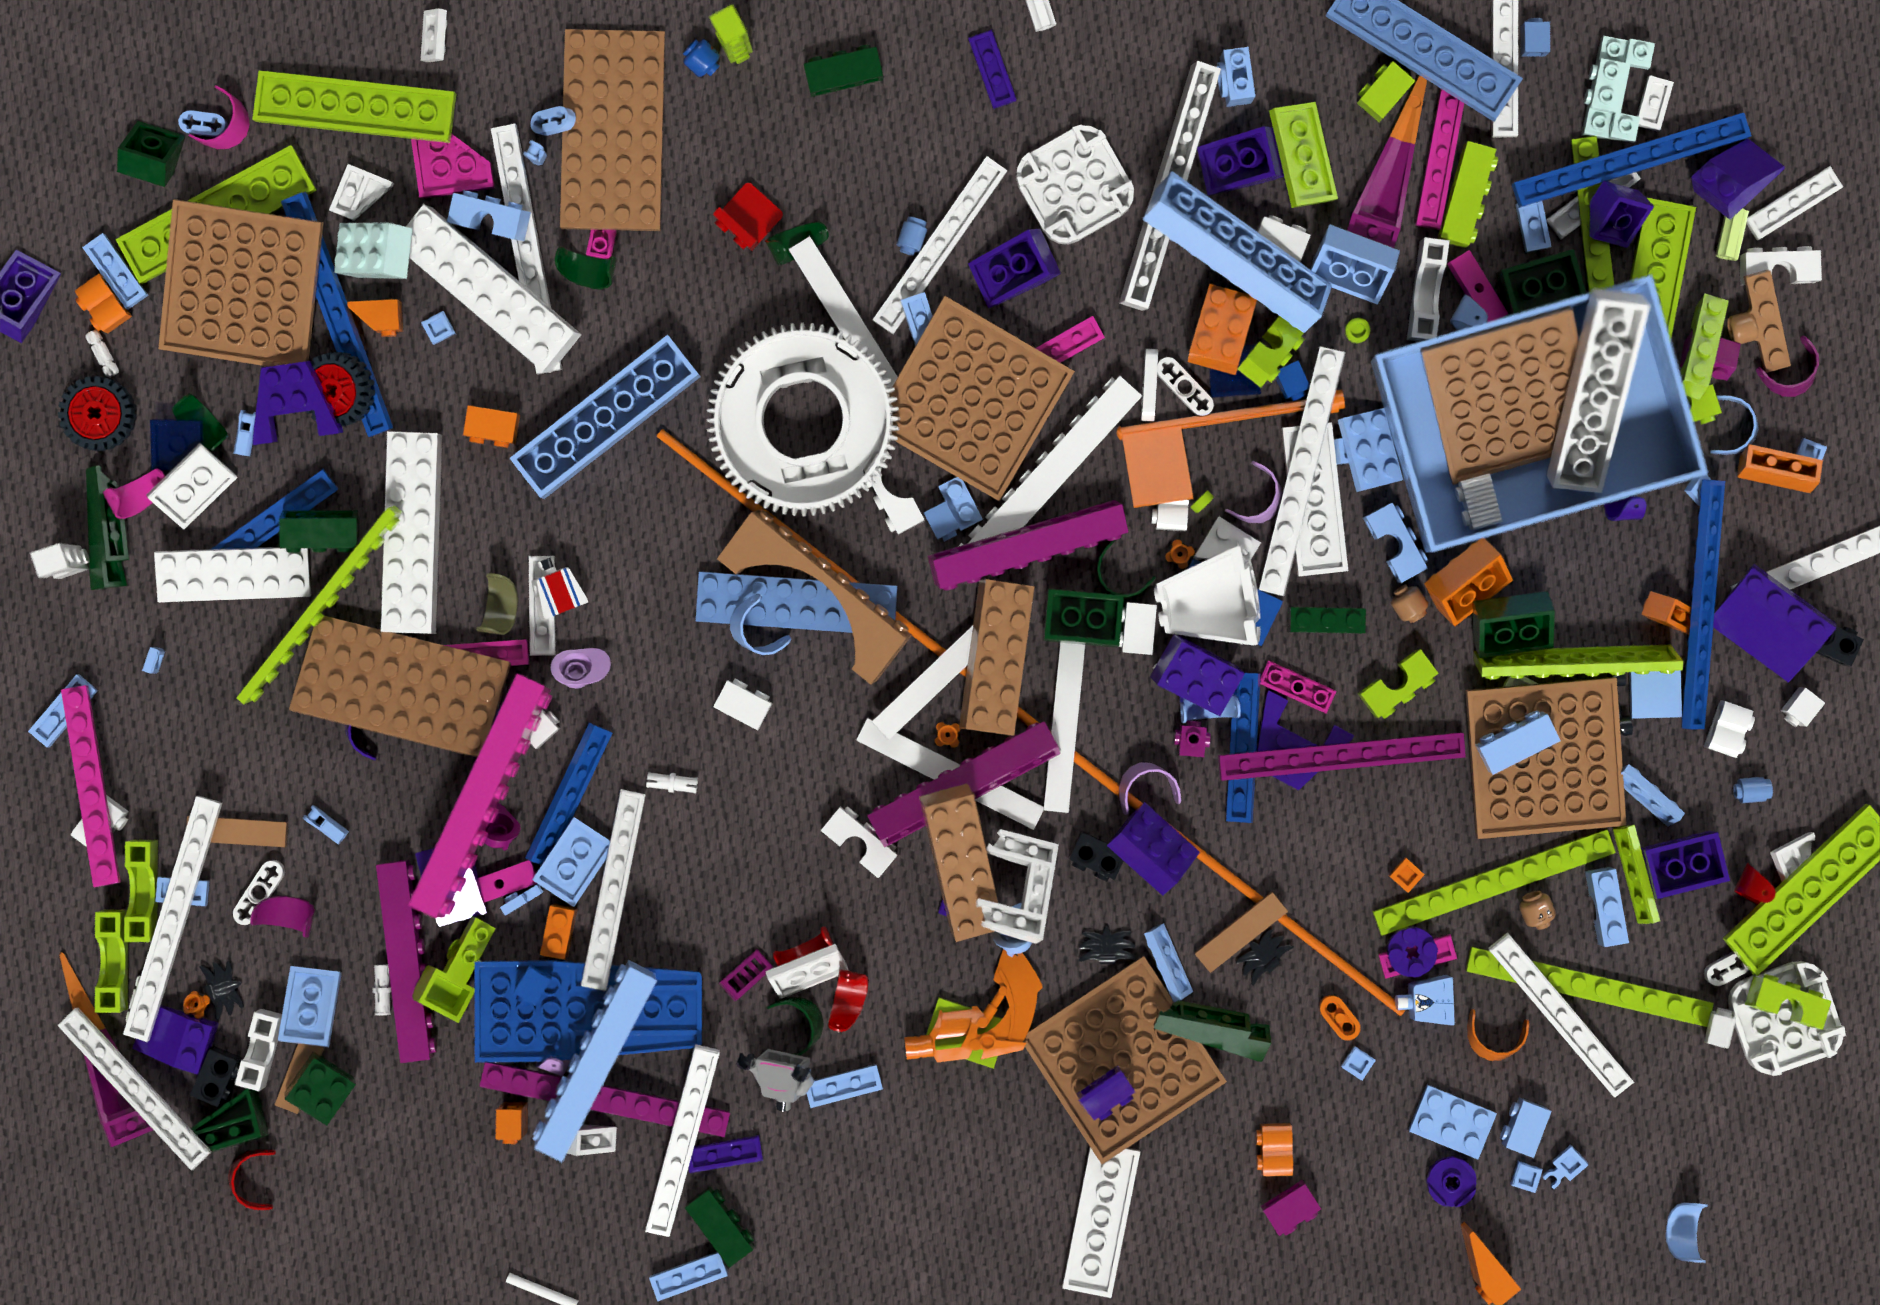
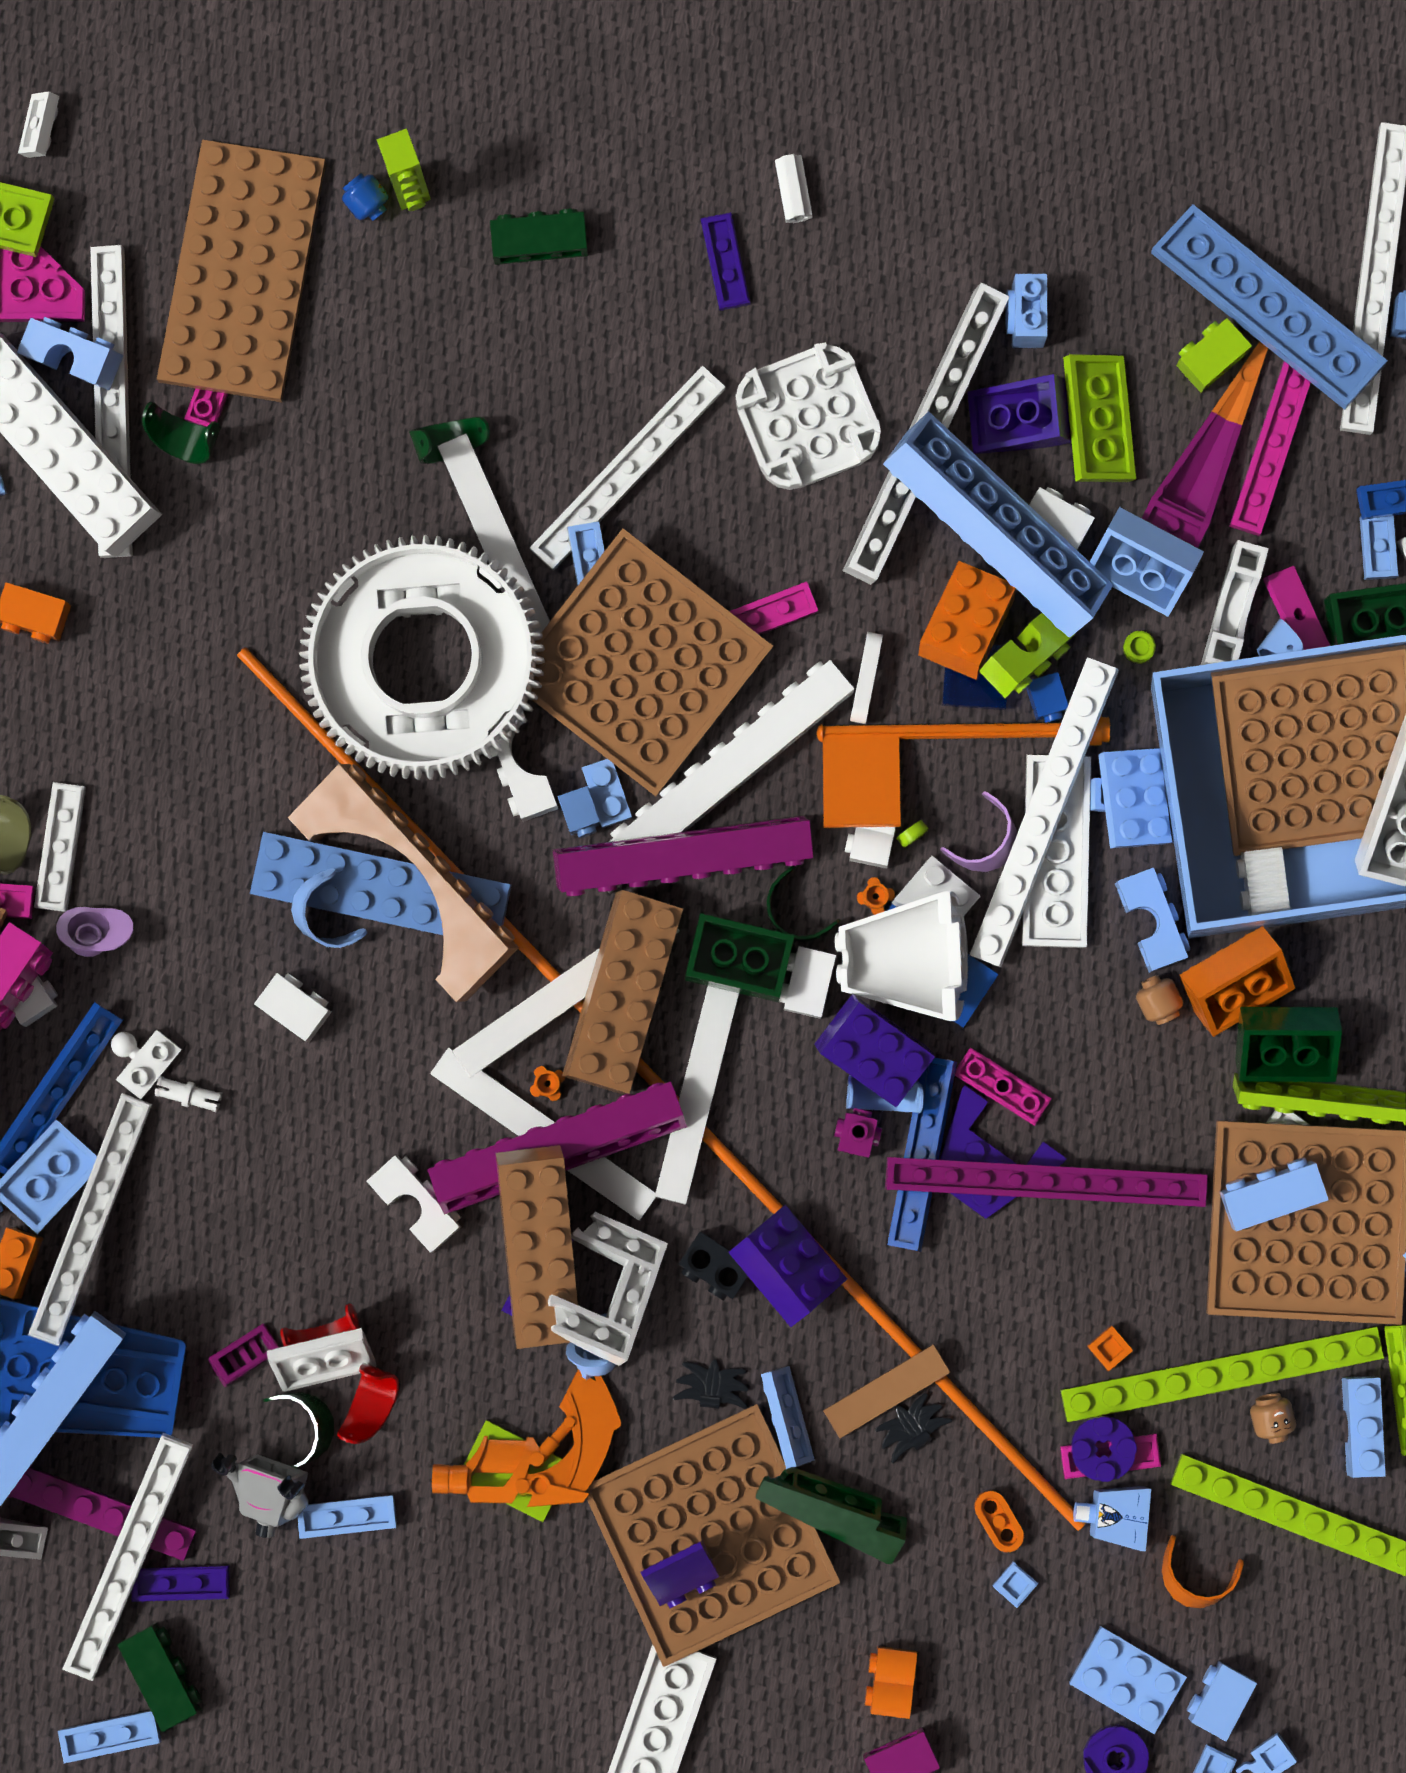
camera: 20 degrees right, 5 degrees down
(535, 153) = (140, 284): light blue bar -> none
(553, 125) = (168, 254): light blue beam -> none
(556, 590) = (79, 828): torso -> none
(605, 417) = (175, 621): light blue brick -> none
(636, 763) = (146, 1063): none -> white plate
(748, 217) = (393, 400): red bracket -> none
(912, 236) = (594, 451): medium blue brick -> none
(1014, 267) = (717, 508): dark purple slope -> none
(1140, 769) = (784, 1162): lavender piece -> none
(1174, 387) = (891, 672): white beam -> none
(1326, 620) = (1050, 1005): dark green brick -> none
(1417, 673) = (1157, 1088): lime arch -> none
(1467, 194) = (1299, 496): lime brick -> none
(1561, 1015) = (1286, 1559): white tile -> none

